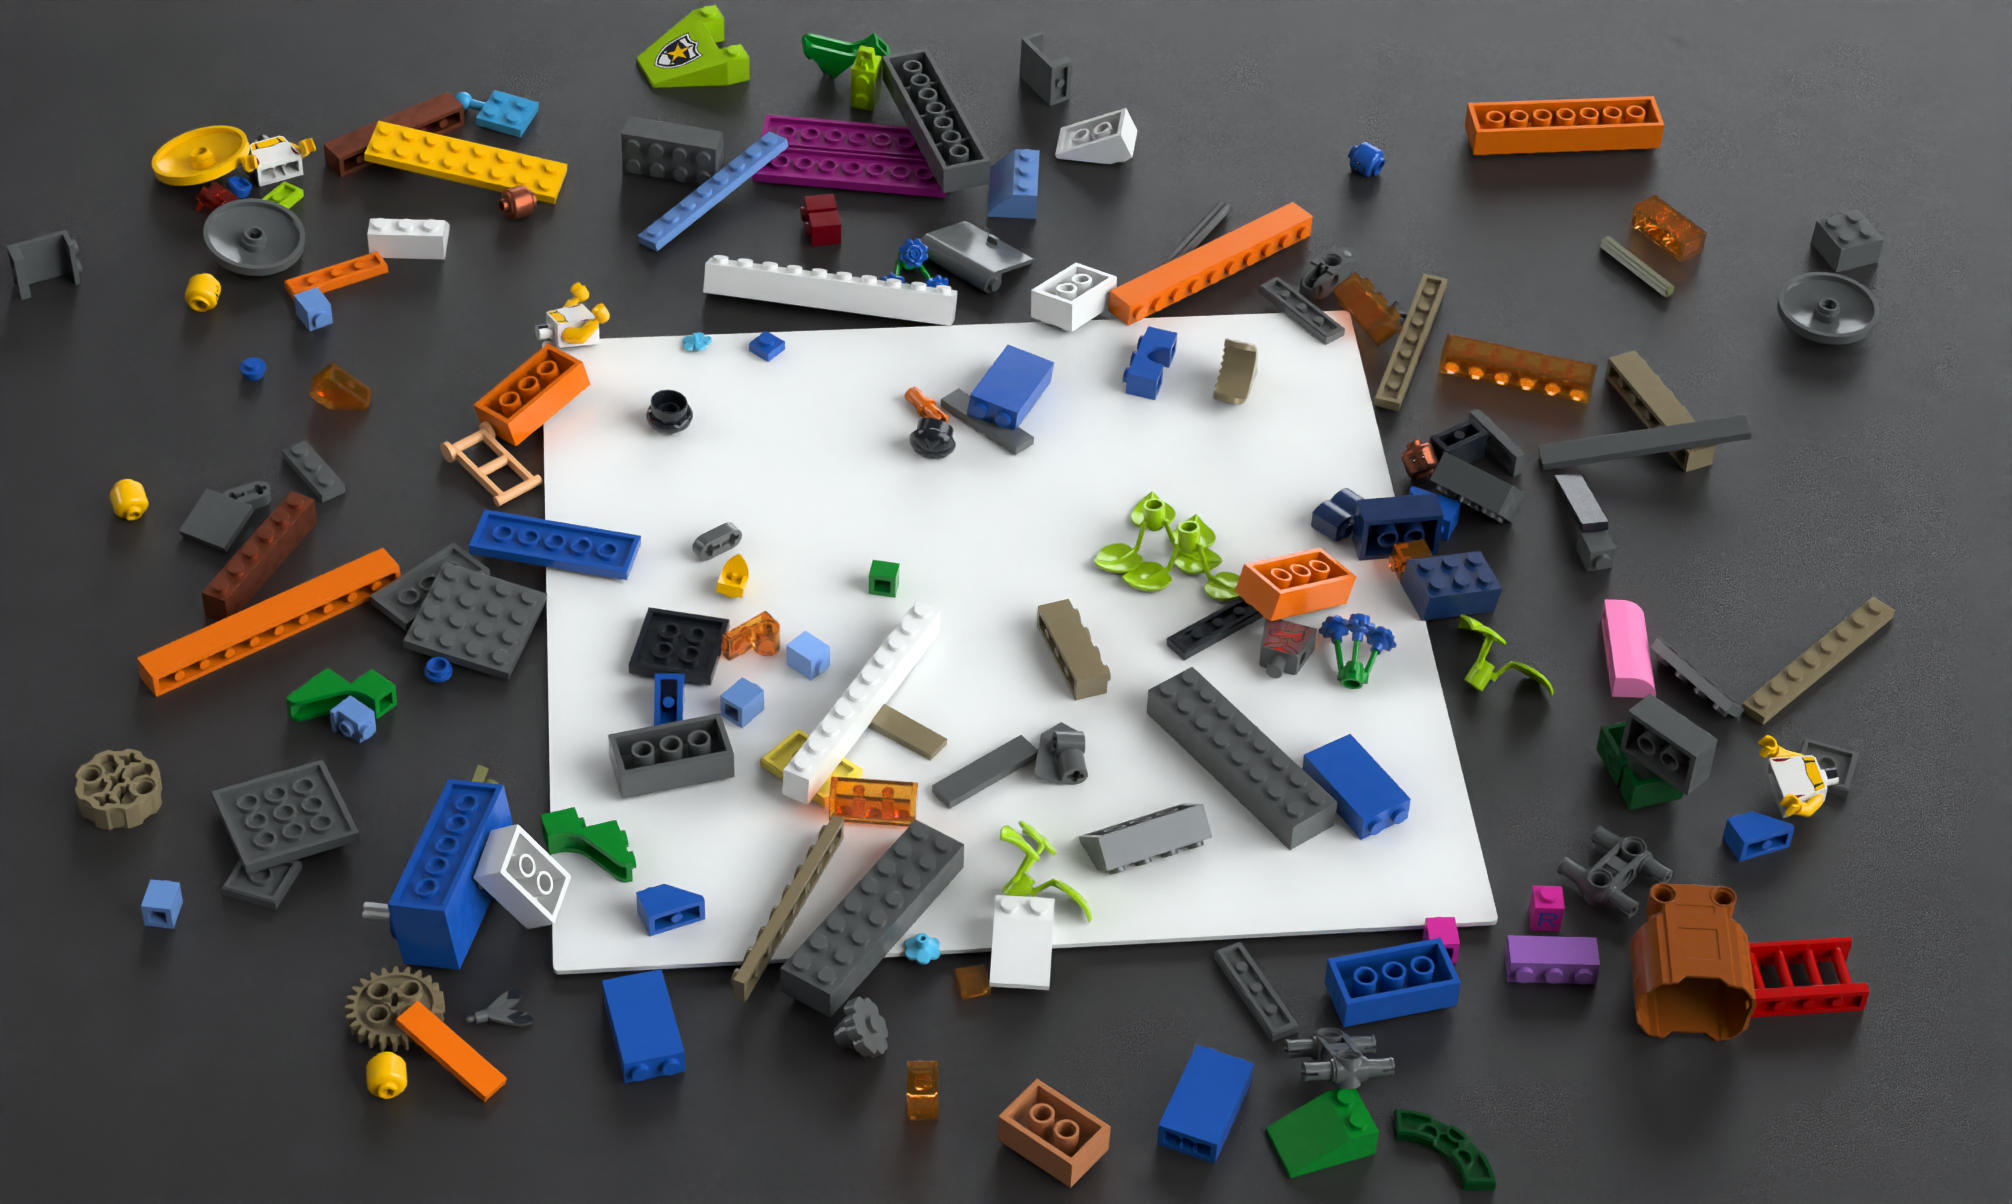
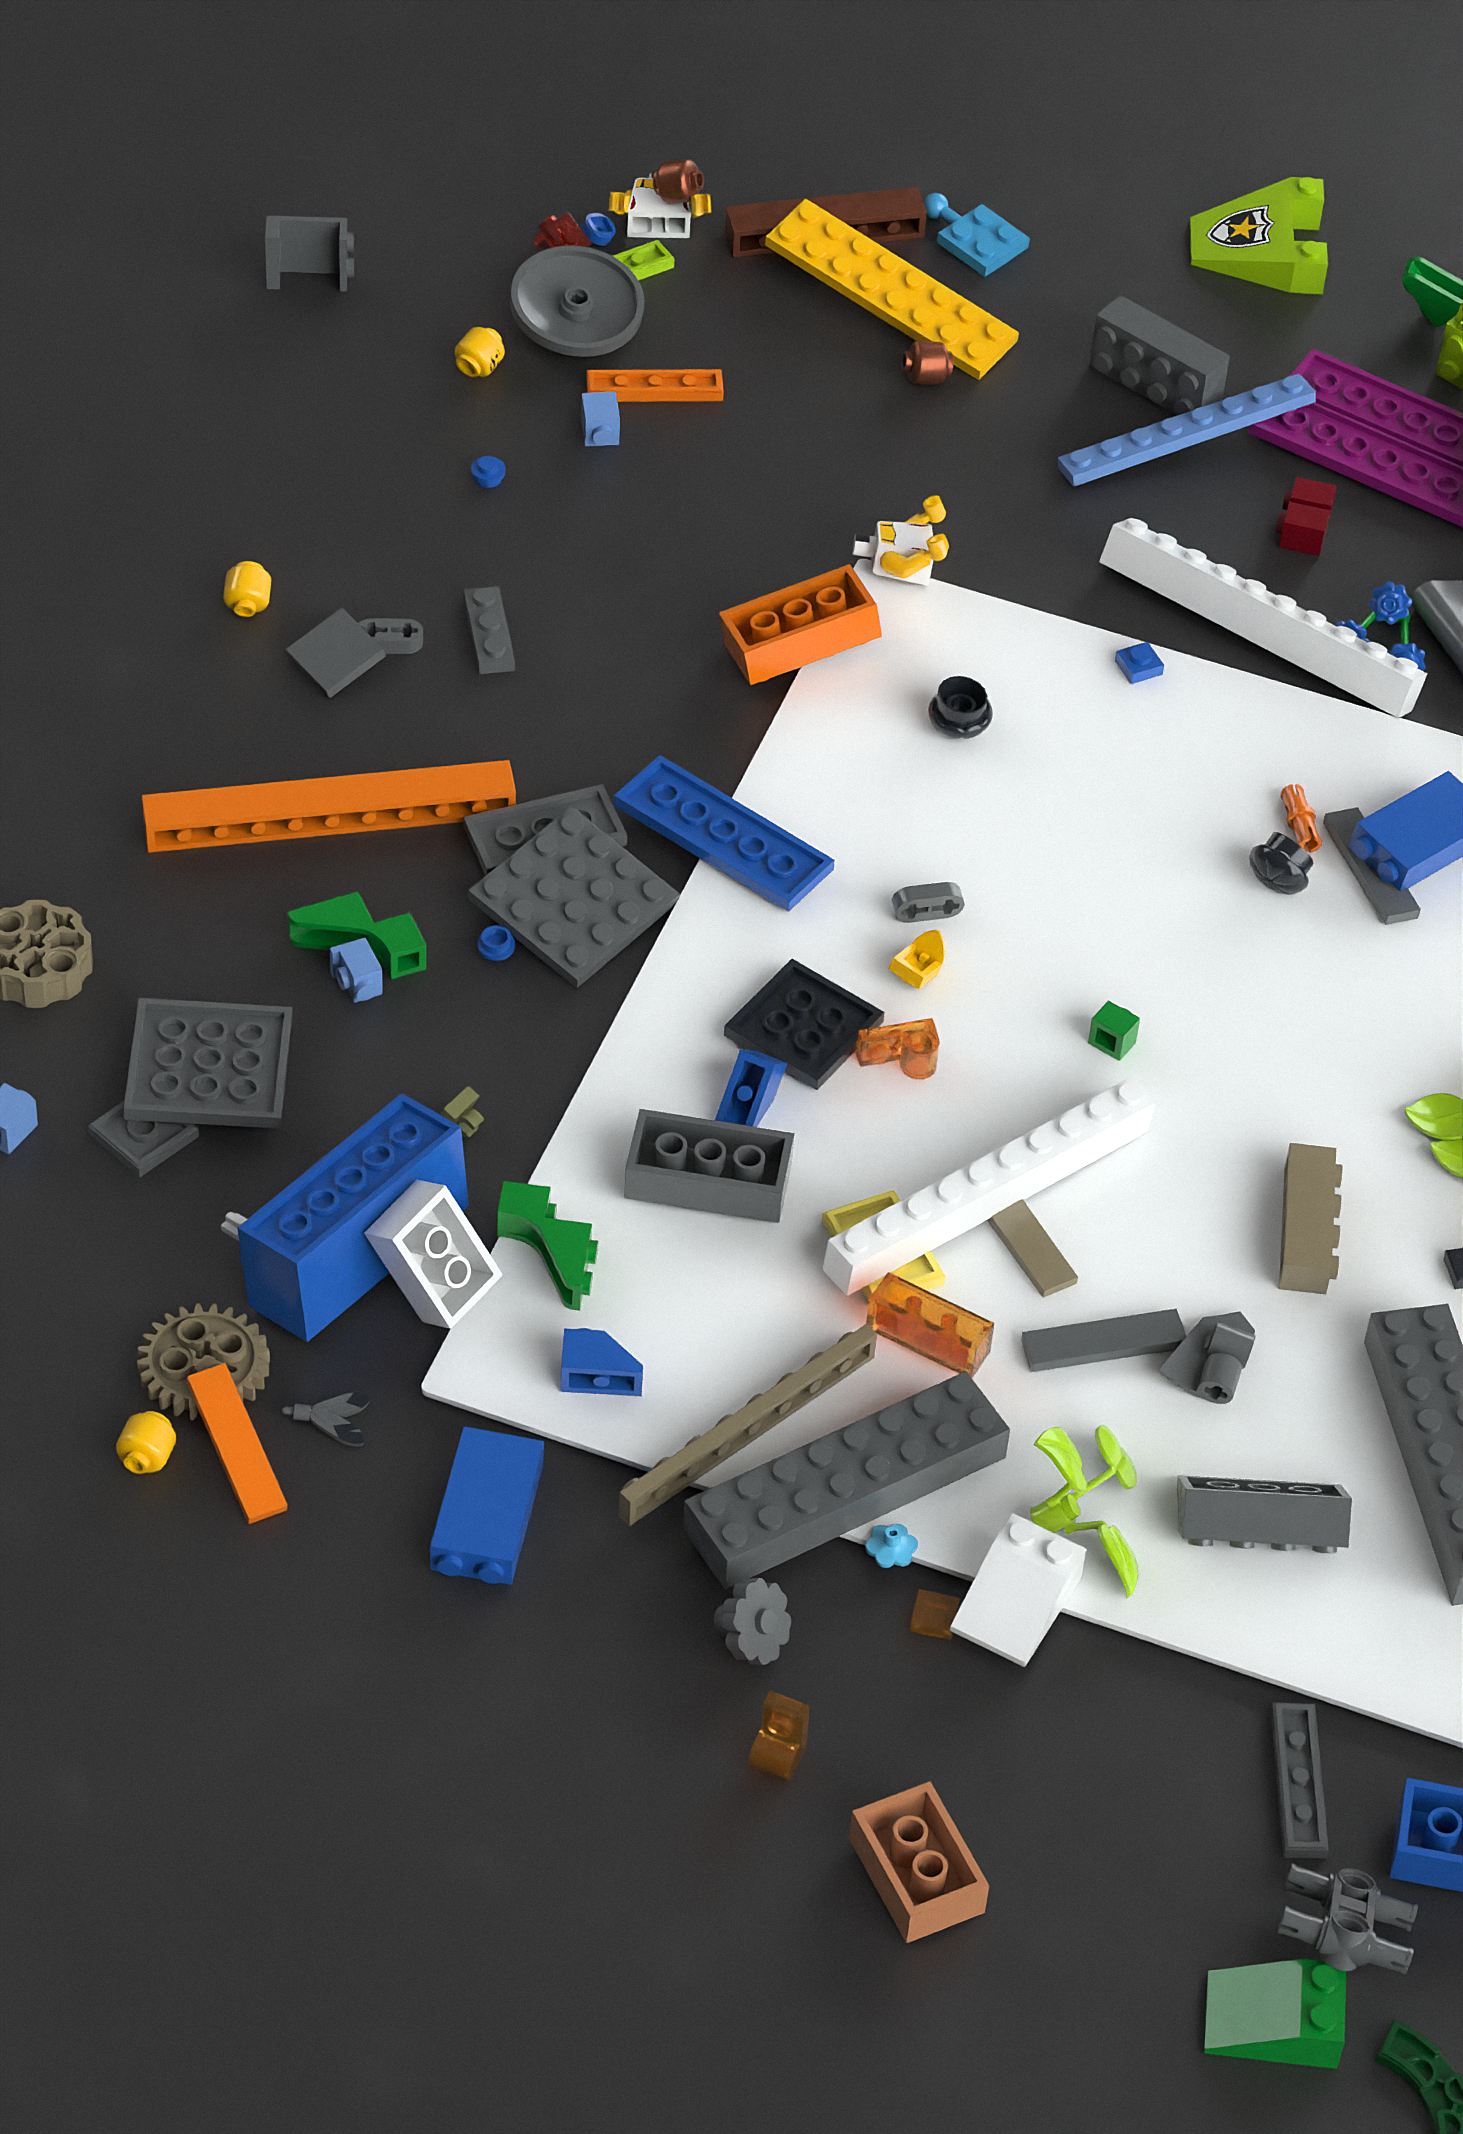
camera: 25 degrees right, 5 degrees up
(200, 155) = (570, 173): yellow dish -> none
(259, 557) = (360, 718): copper brick -> none
(284, 135) = (678, 181): none -> copper head
(339, 389) = (575, 535): clear orange slope -> none
(408, 238) = (767, 365): white slope -> none
(487, 434) = (723, 657): light nougat piece -> none
(696, 342) = (1052, 625): medium azure plant -> none
(742, 702) = (841, 1128): medium blue brick -> none
(808, 655) = (958, 1097): light blue brick -> none
(1205, 1103) = (1142, 1905): blue brick -> none

